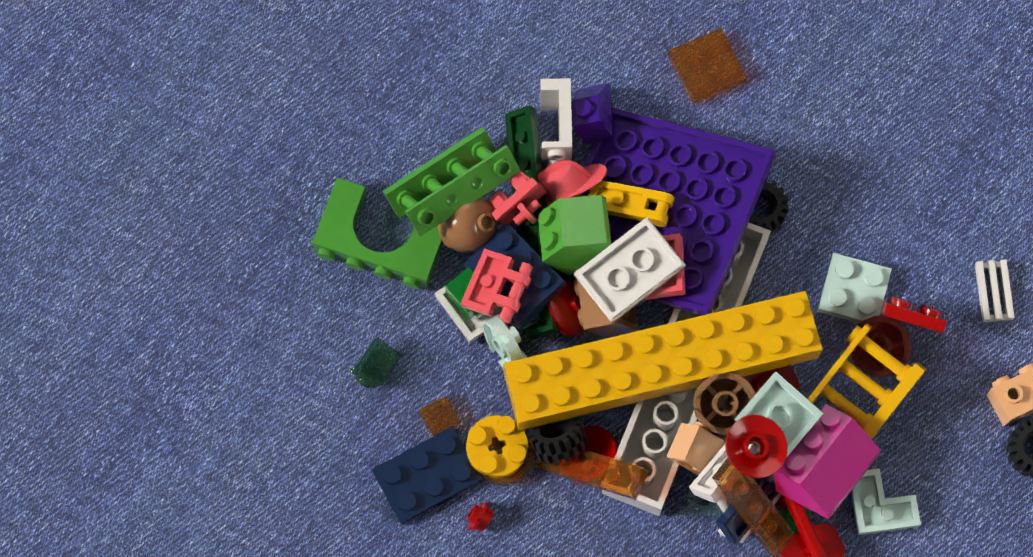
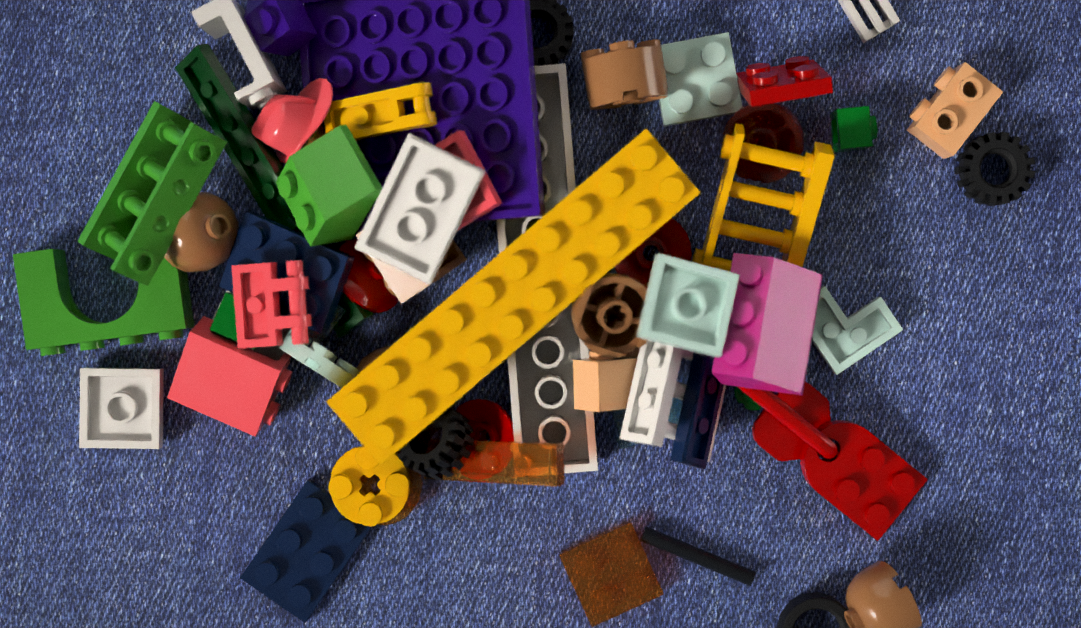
camera: 25 degrees left, 15 degrees up
(351, 315) = (121, 408): none -> white plate
(376, 364) = (180, 454): clear green bracket -> none
(438, 329) = (228, 380): none -> coral panel
(439, 416) = (286, 474): clear orange tile -> none
(479, 516) = (391, 571): red plate -> none
(520, 204) = (249, 182): coral hips -> none
(754, 508) = (703, 419): clear orange tile -> none
(767, 438) = (700, 361): red dish -> none
(807, 259) = (624, 74): none -> medium nougat brick
(948, 372) = (852, 129): none -> green plate

